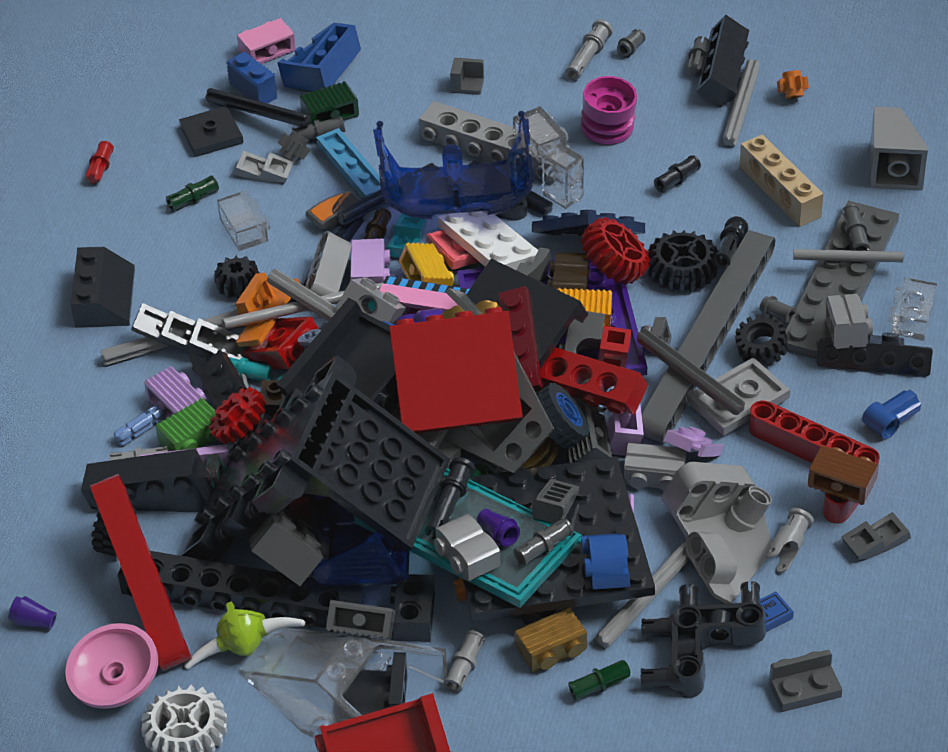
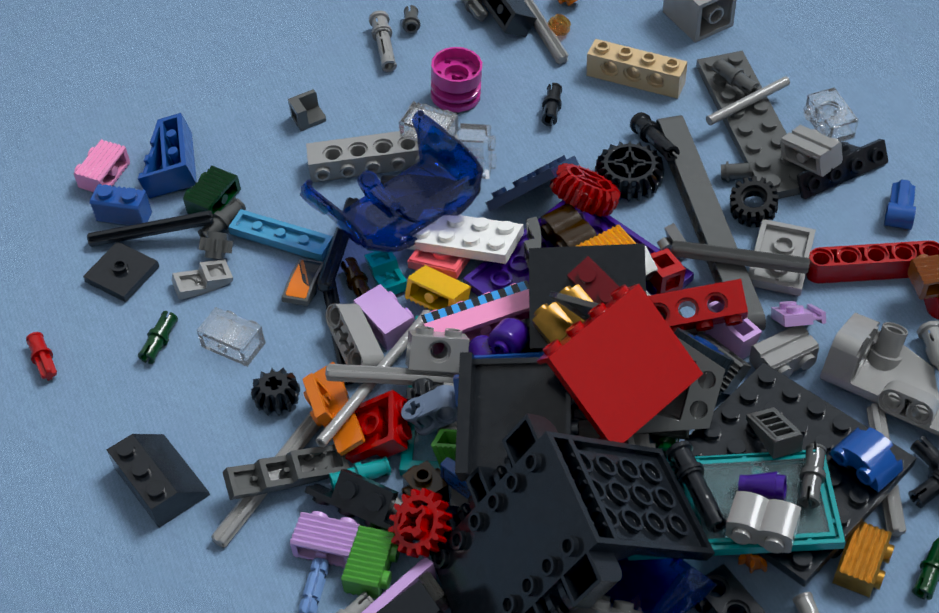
camera: 35 degrees left, 5 degrees up
(755, 110) = (559, 24): none -> clear orange plate

